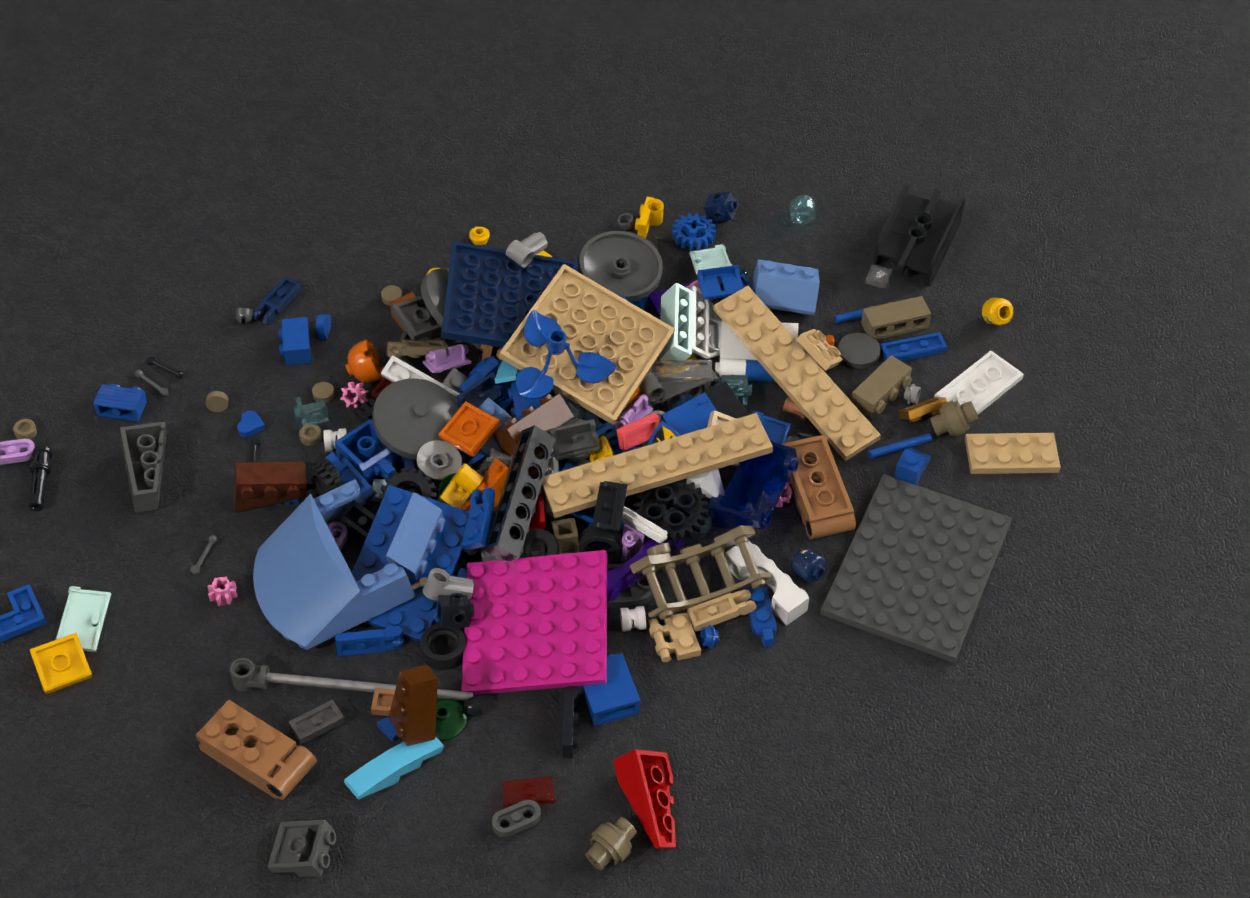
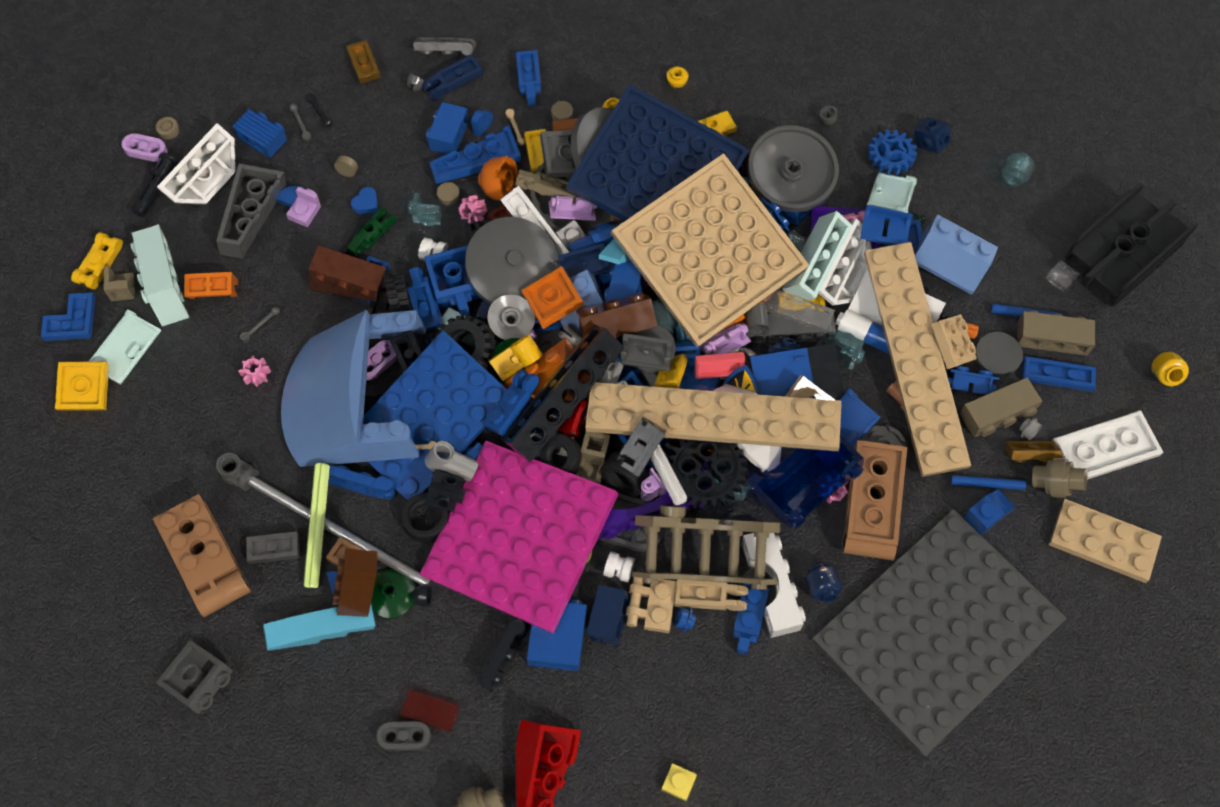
camera: 25 degrees right, 15 degrees up
(17, 559) = (97, 260): none -> yellow plate
(52, 571) = (119, 285): none -> dark tan panel
(82, 446) = (202, 170): none -> white wedge
(88, 546) = (158, 275): none -> light aqua wedge
(141, 536) = (209, 285): none -> orange hinge
(176, 444) = (287, 196): none -> blue tile
(186, 314) = (363, 61): none -> pearl gold plate
(195, 447) = (304, 207): none -> lavender bracket
(258, 276) = (446, 45): none -> flat silver plate
(270, 442) = (371, 232): none -> dark green hinge
(310, 434) = (414, 234): dark tan tile -> none
(332, 355) = (473, 157): none -> blue wing
(345, 313) = (510, 114): none -> tan hinge
(346, 276) = (528, 75): none -> blue hinge
(349, 686) = (316, 525): none -> yellowish green axle
(385, 328) = (534, 149): none -> yellow plate
(416, 536) = (437, 401): medium blue slope -> none
(524, 251) = (695, 121): light grey piece -> none
(539, 330) = (665, 224): blue plant -> none
(643, 658) = (608, 615): none -> dark blue hinge
(650, 214) = (857, 116): yellow plate -> none
(769, 758) = (679, 782): none -> light yellow plate
(855, 373) = (981, 382): none -> blue hinge

